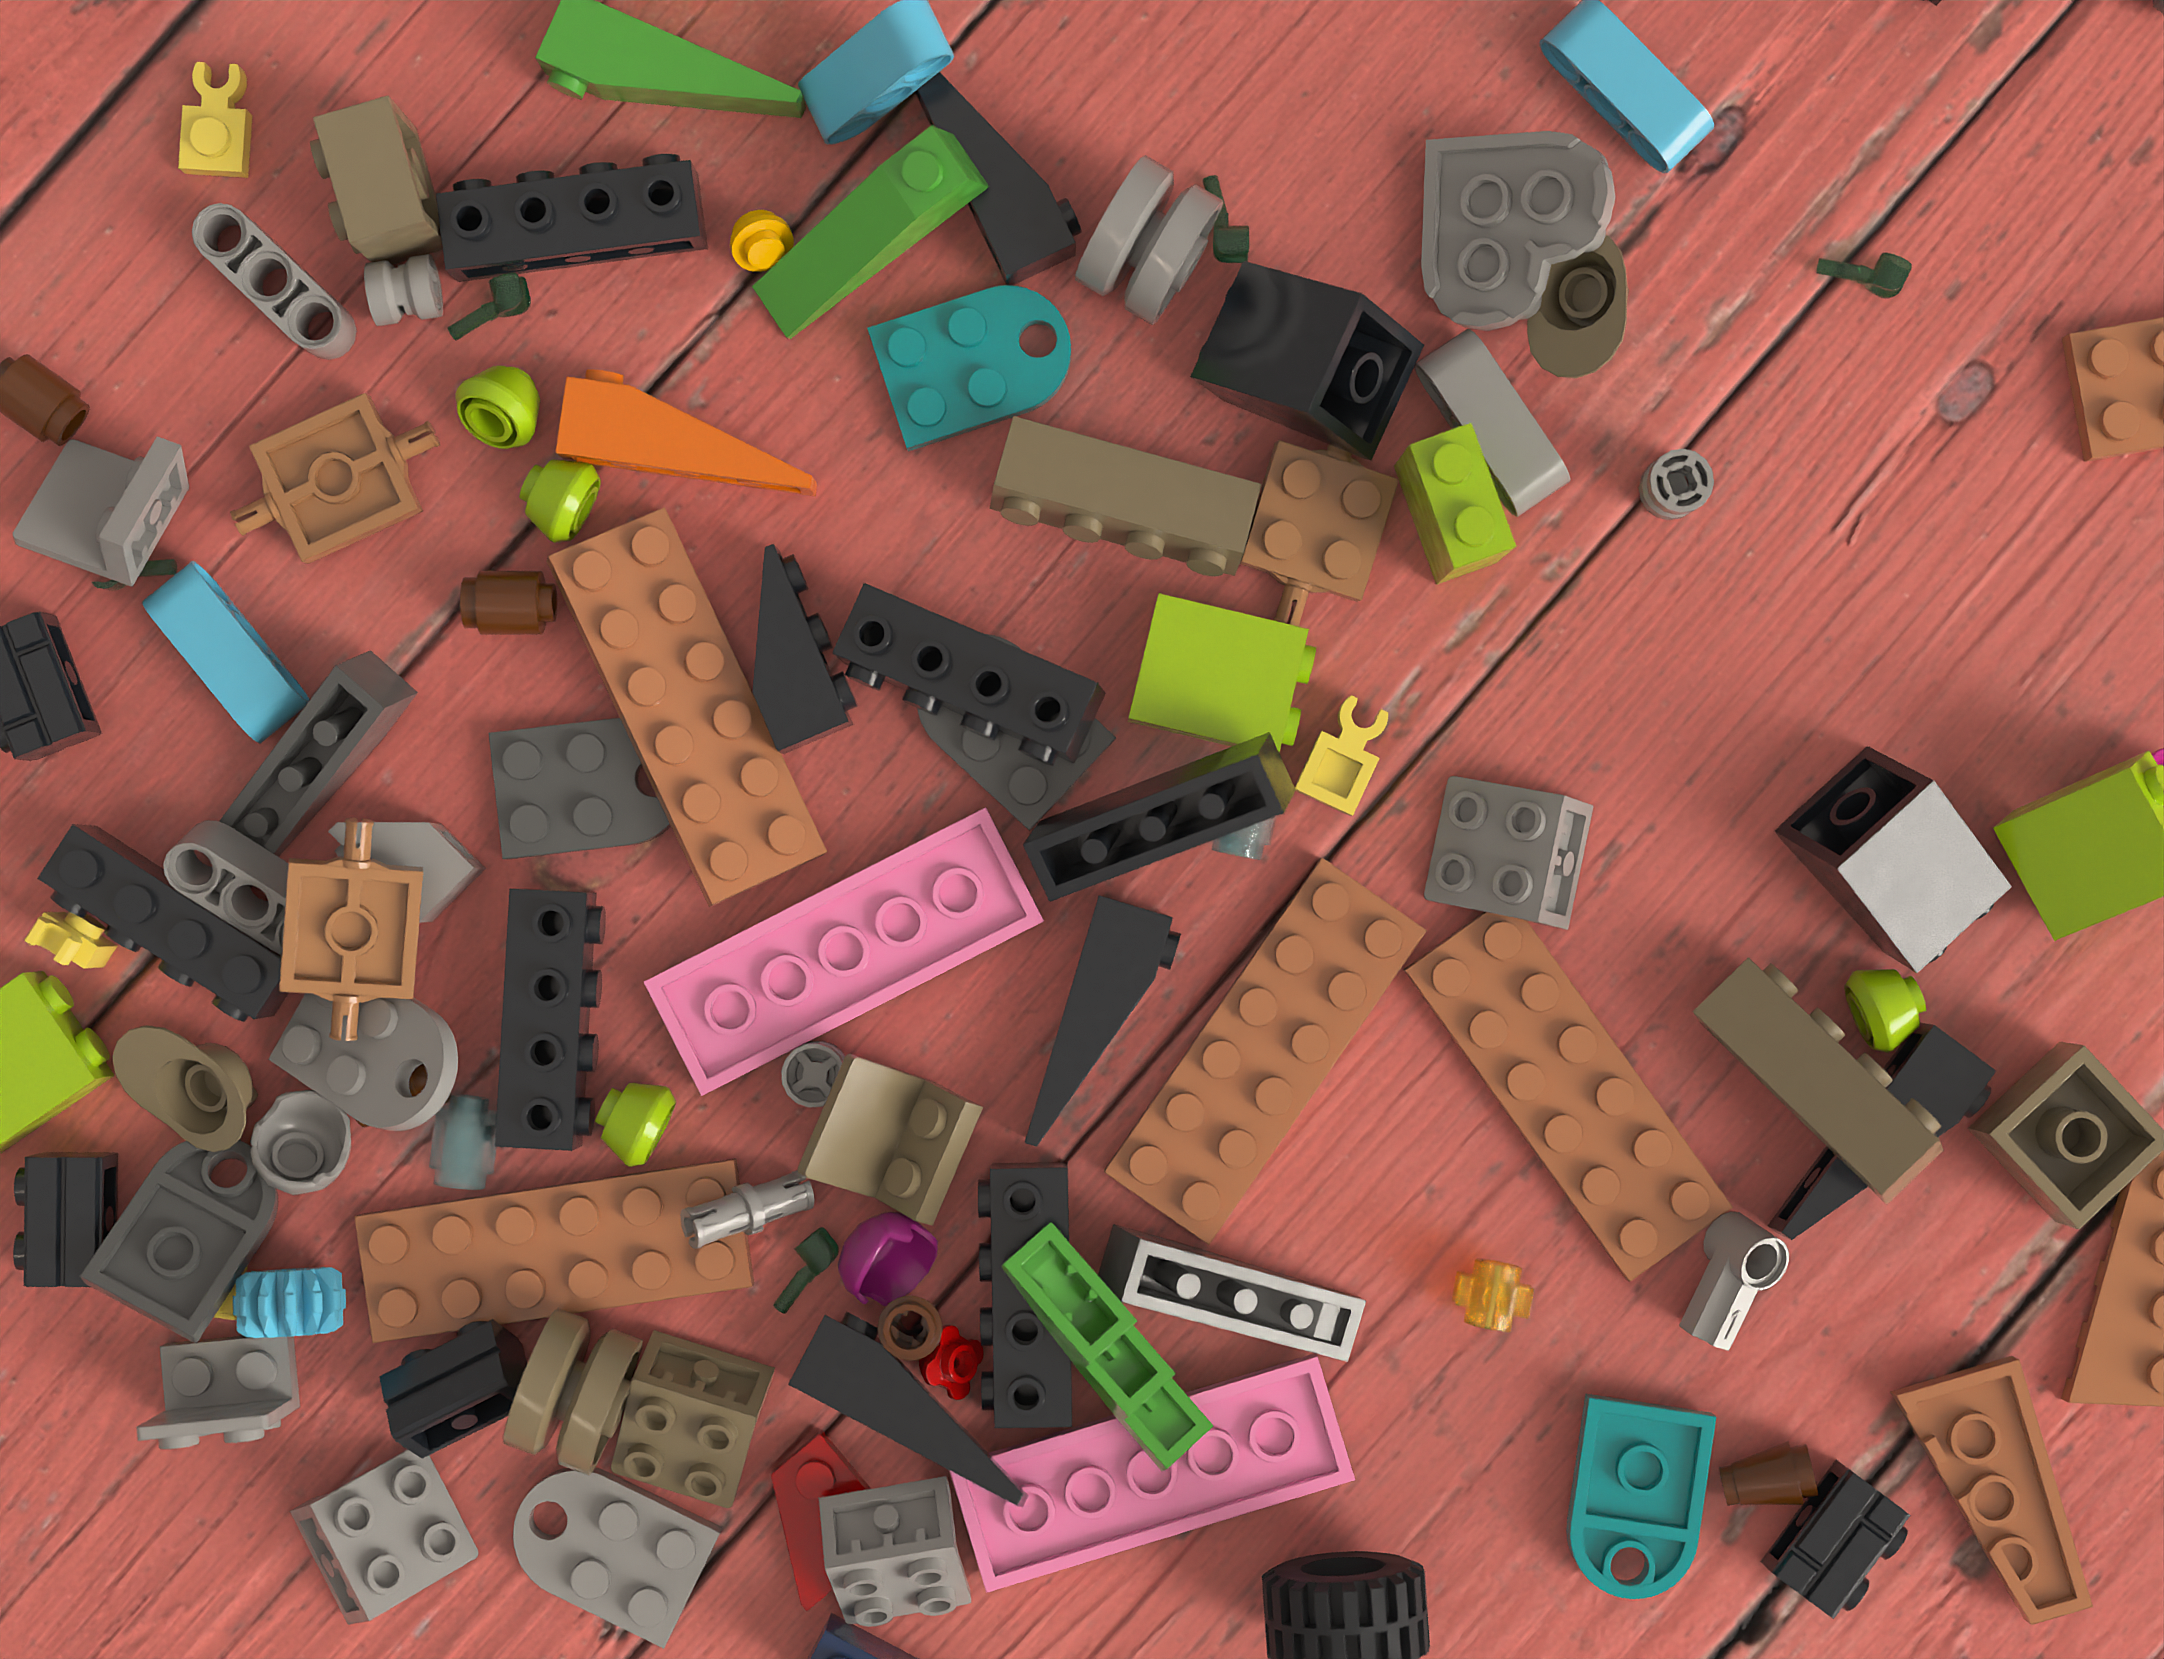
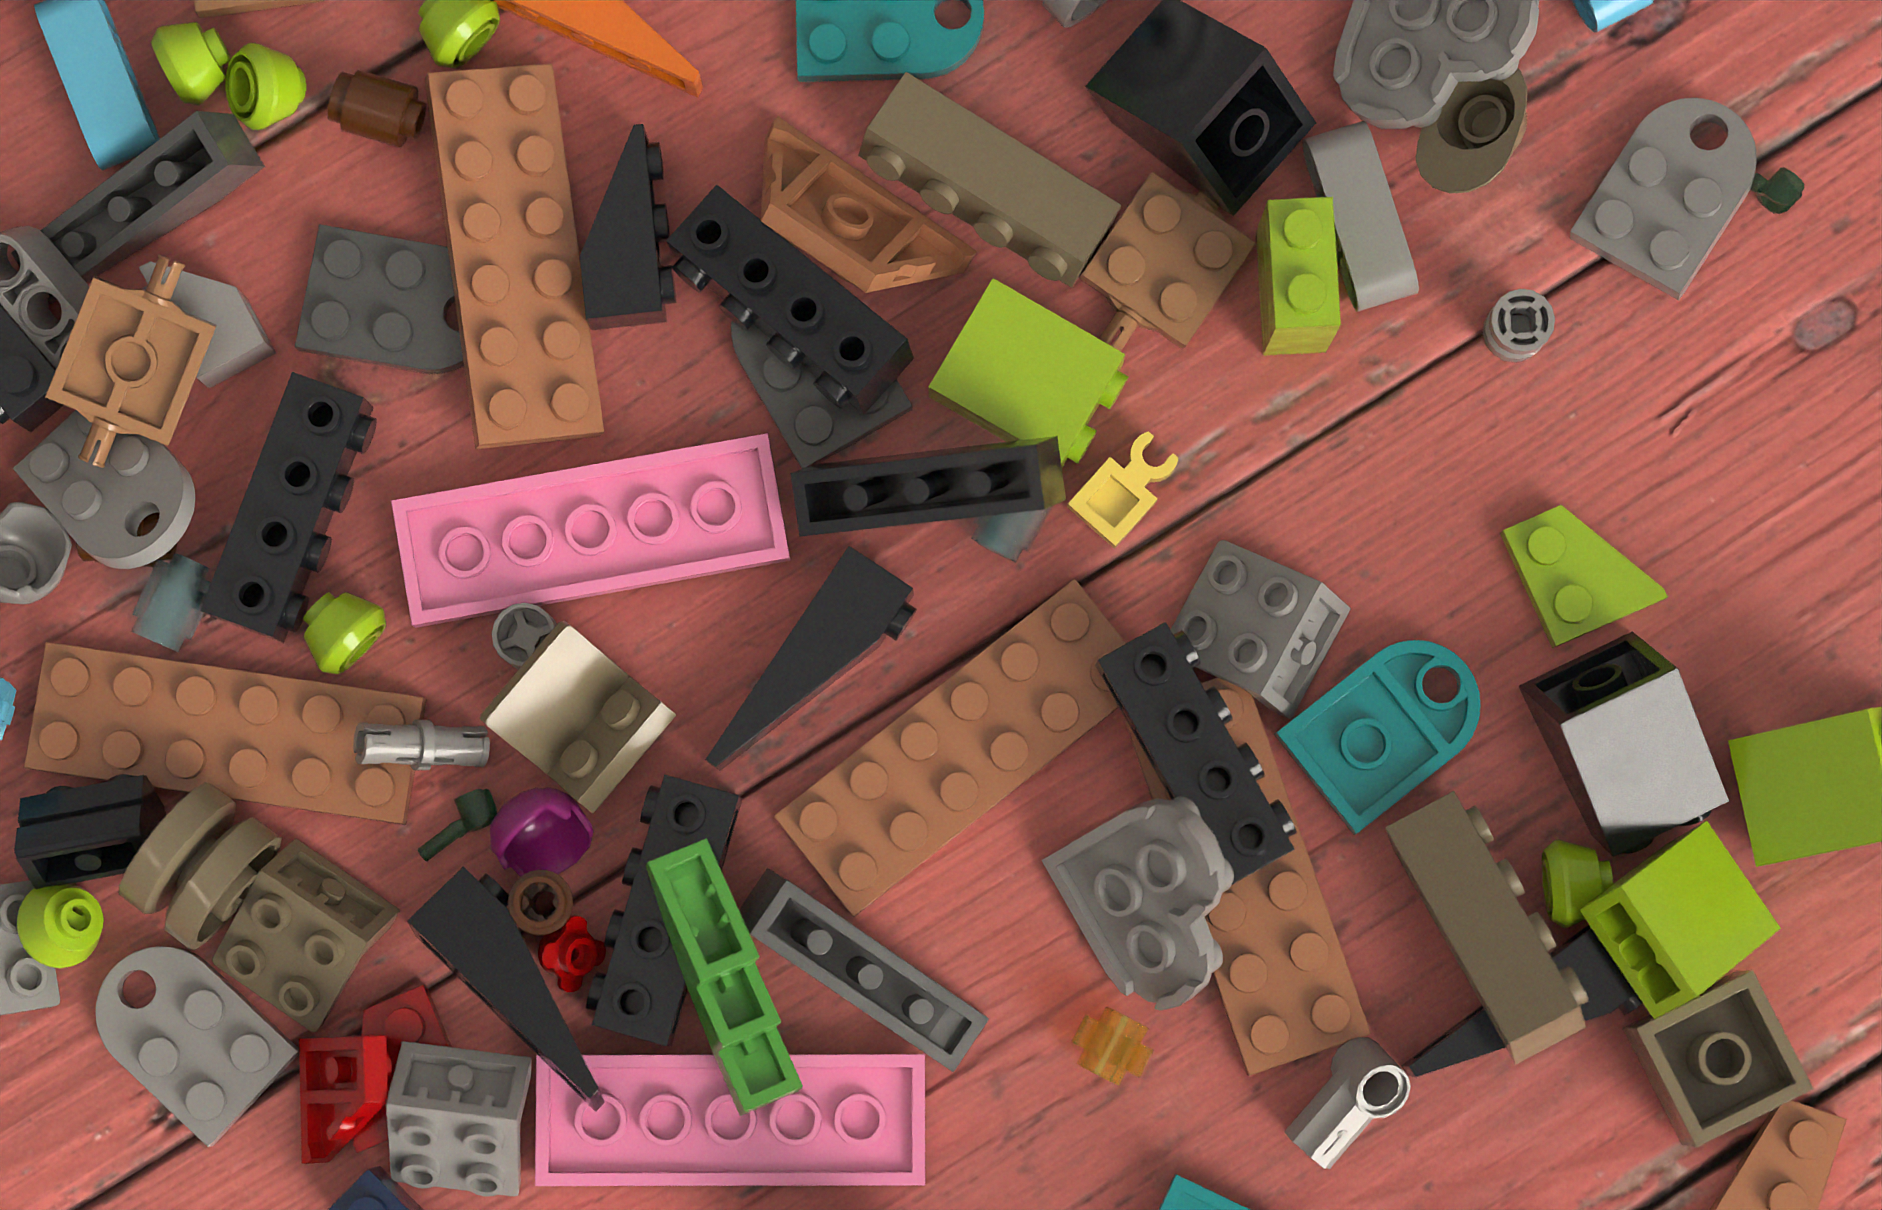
camera: 20 degrees right, 5 degrees down
(312, 609) = (191, 59): none -> lime cone
(391, 614) = (263, 86): none -> lime cone
(455, 1484) = (59, 925): none -> lime cone
(773, 1559) = (339, 1091): none -> red wing
(1000, 574) = (849, 218): none -> nougat wing
(1485, 1146) = (1144, 898): none -> light grey plate
(1493, 999) = (1192, 749): none -> black brick
(1657, 918) = (1381, 732): none -> teal plate
(1784, 313) = (1668, 197): none -> light grey plate
(1798, 709) = (1575, 575): none -> lime wing
(1999, 1016) = (1680, 920): none -> lime brick

